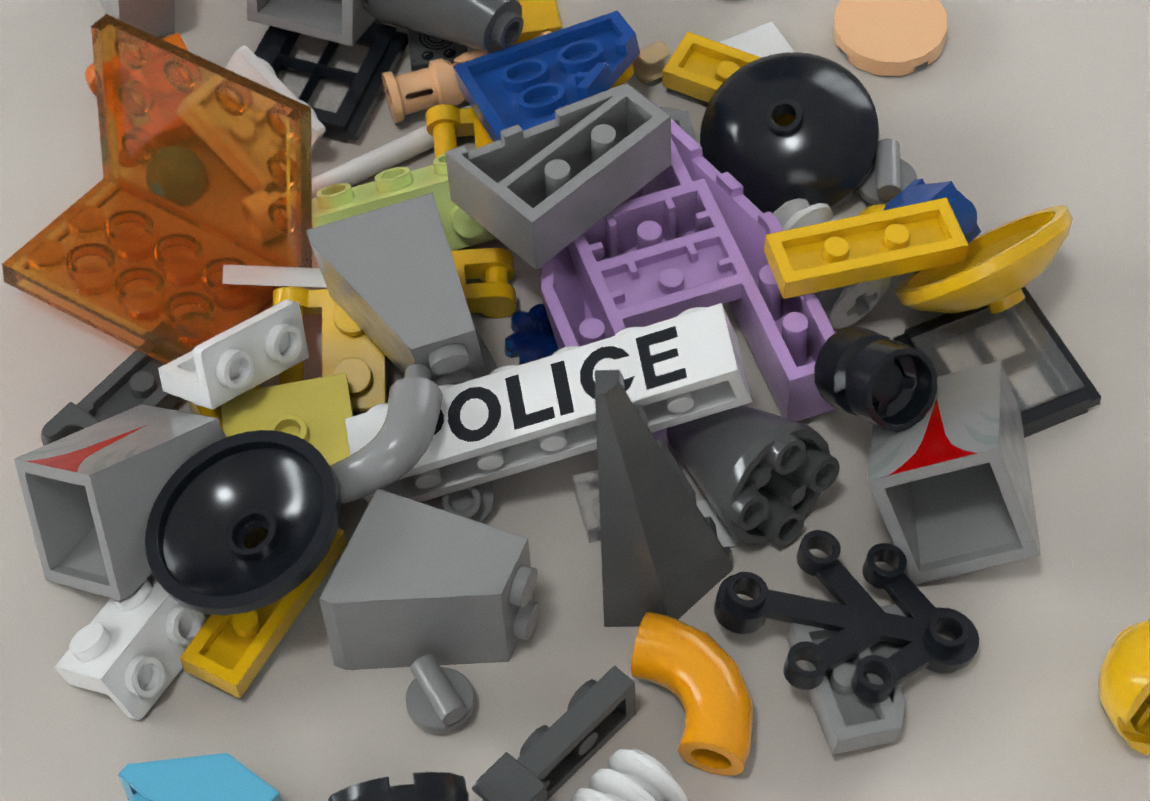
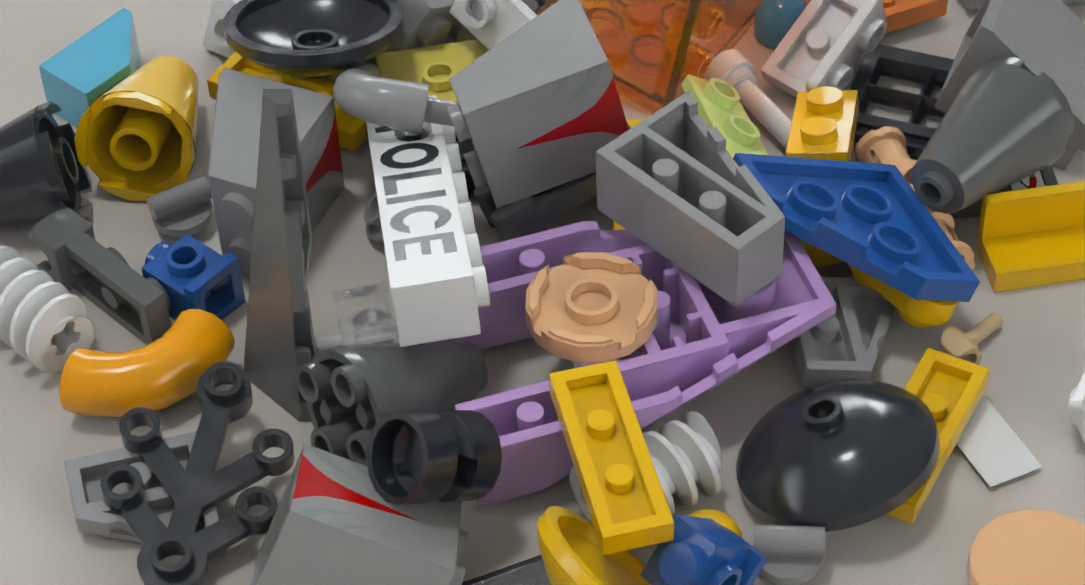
camera: 90 degrees right, 10 degrees down
(273, 276) = (630, 67): white sticker -> none
(317, 726) = (142, 130): none -> yellow cone
(385, 126) = (824, 124): none -> yellow plate
(573, 642) = (190, 270): none -> blue brick
(668, 269) = (591, 308): none -> light nougat tile

